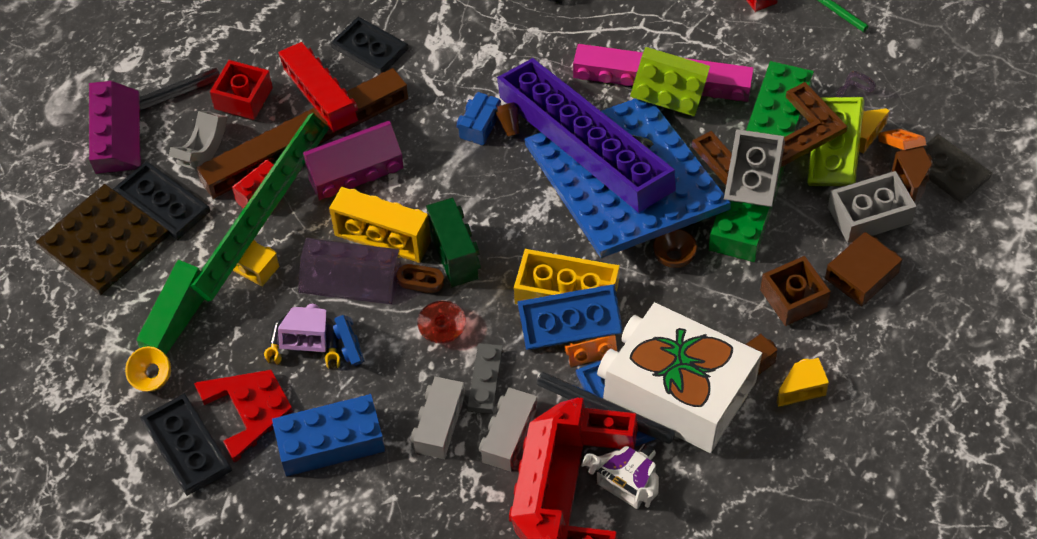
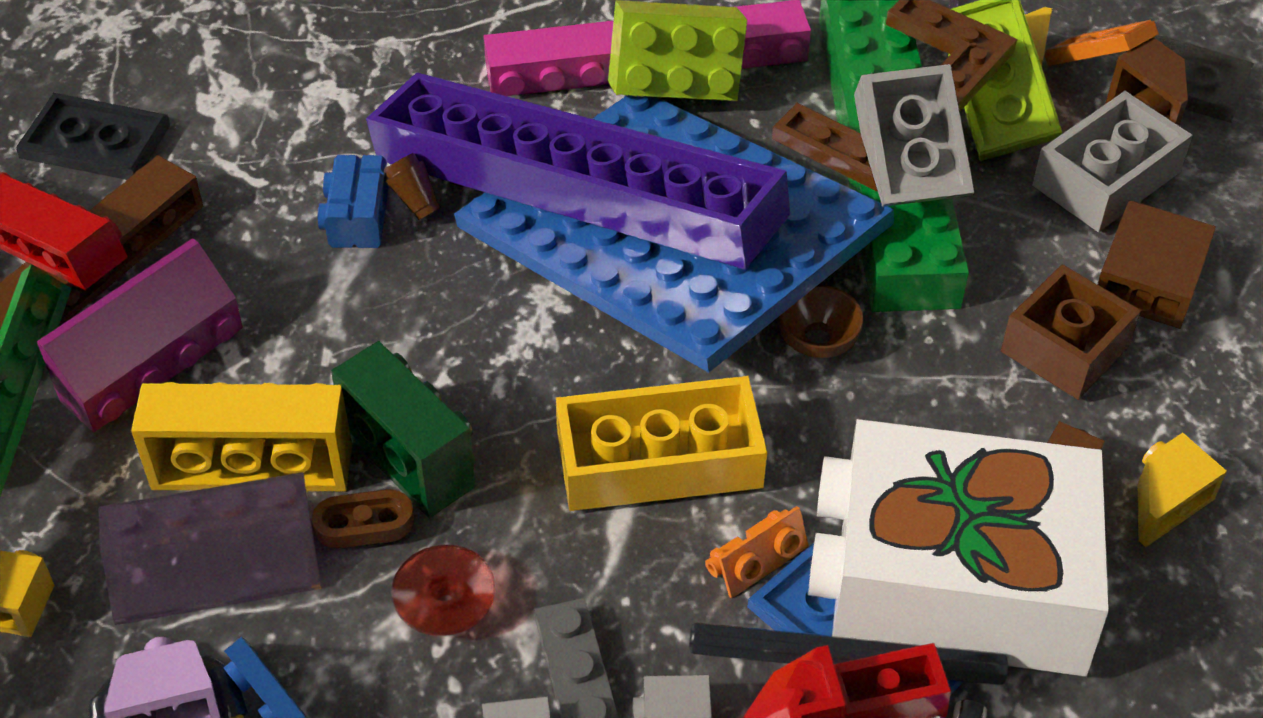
camera: 25 degrees left, 5 degrees down
(570, 316) = (699, 499): blue tile -> none

